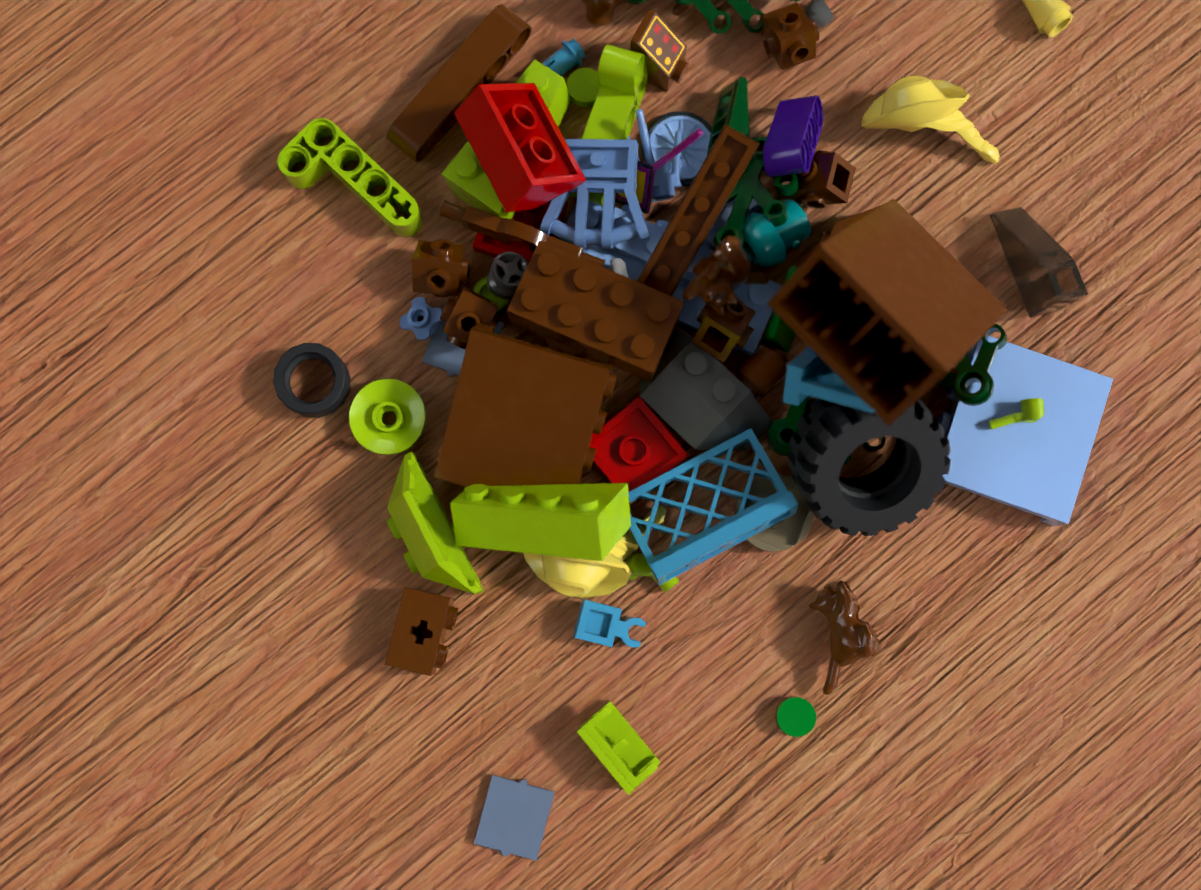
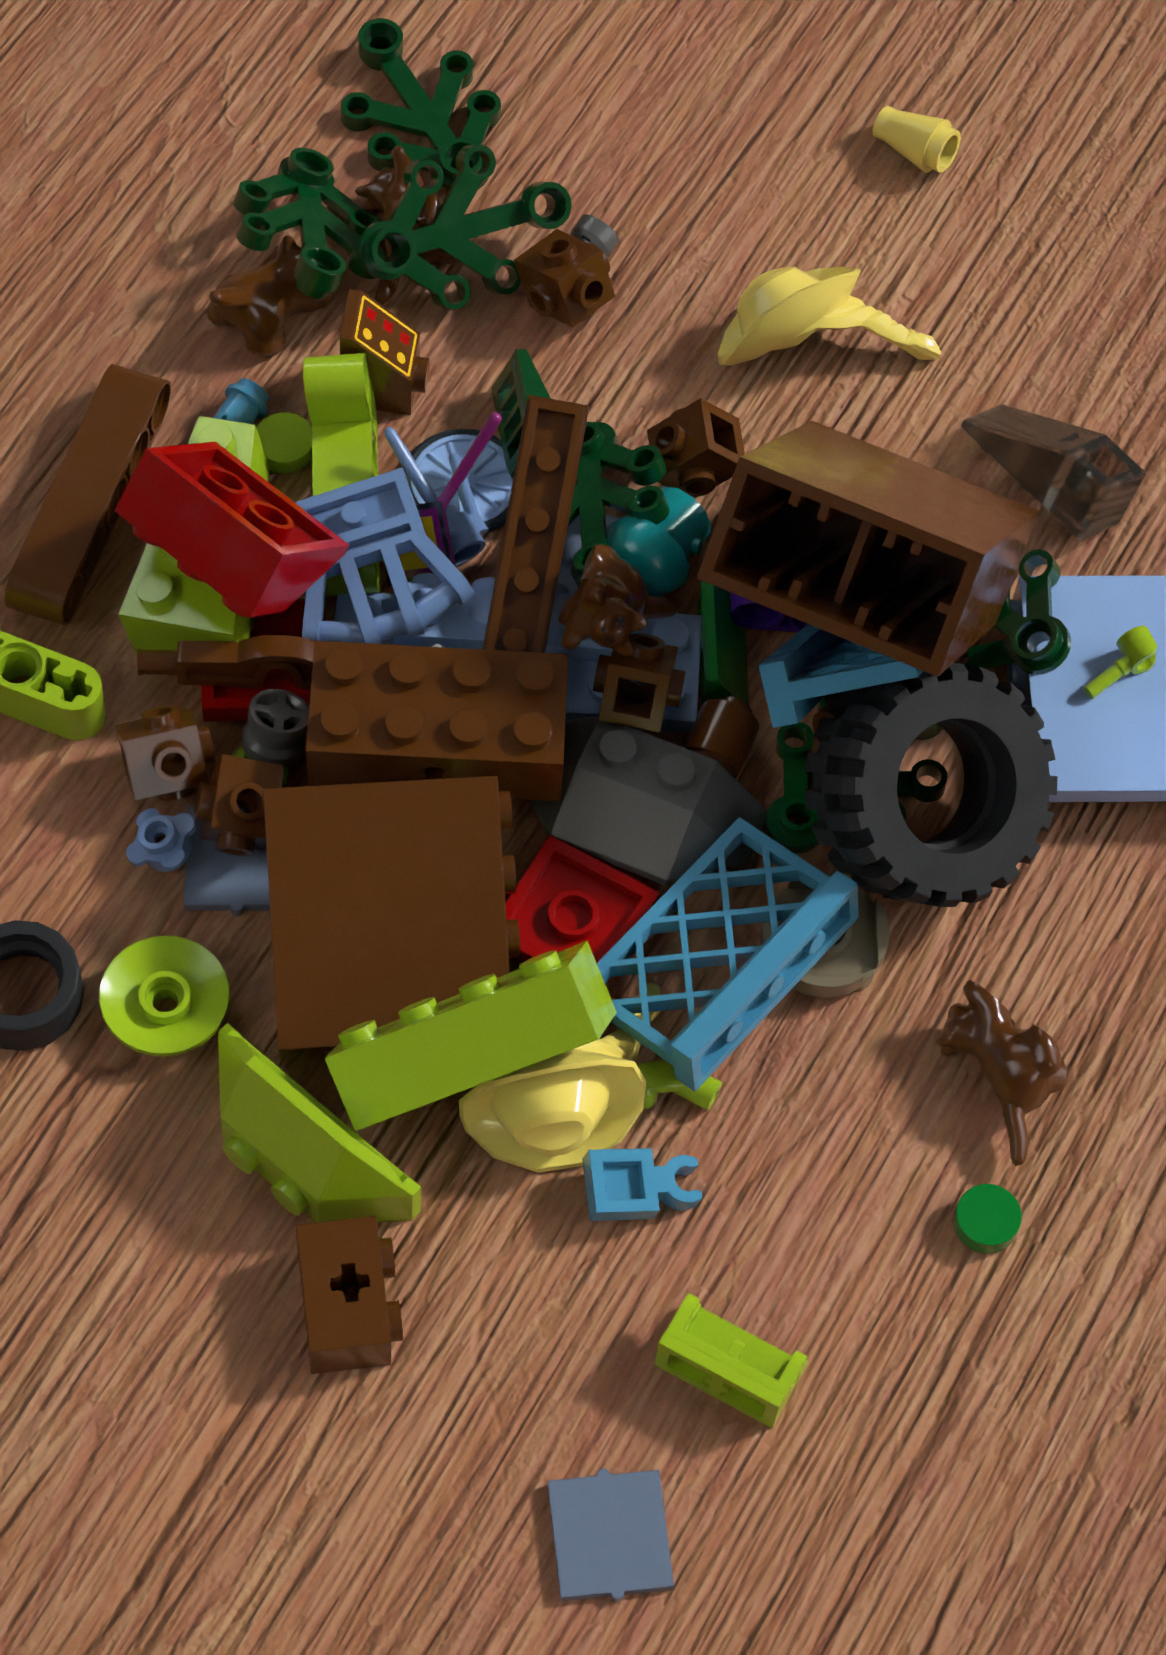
camera: 25 degrees left, 20 degrees down
(793, 136) = (629, 400): dark purple beam -> none

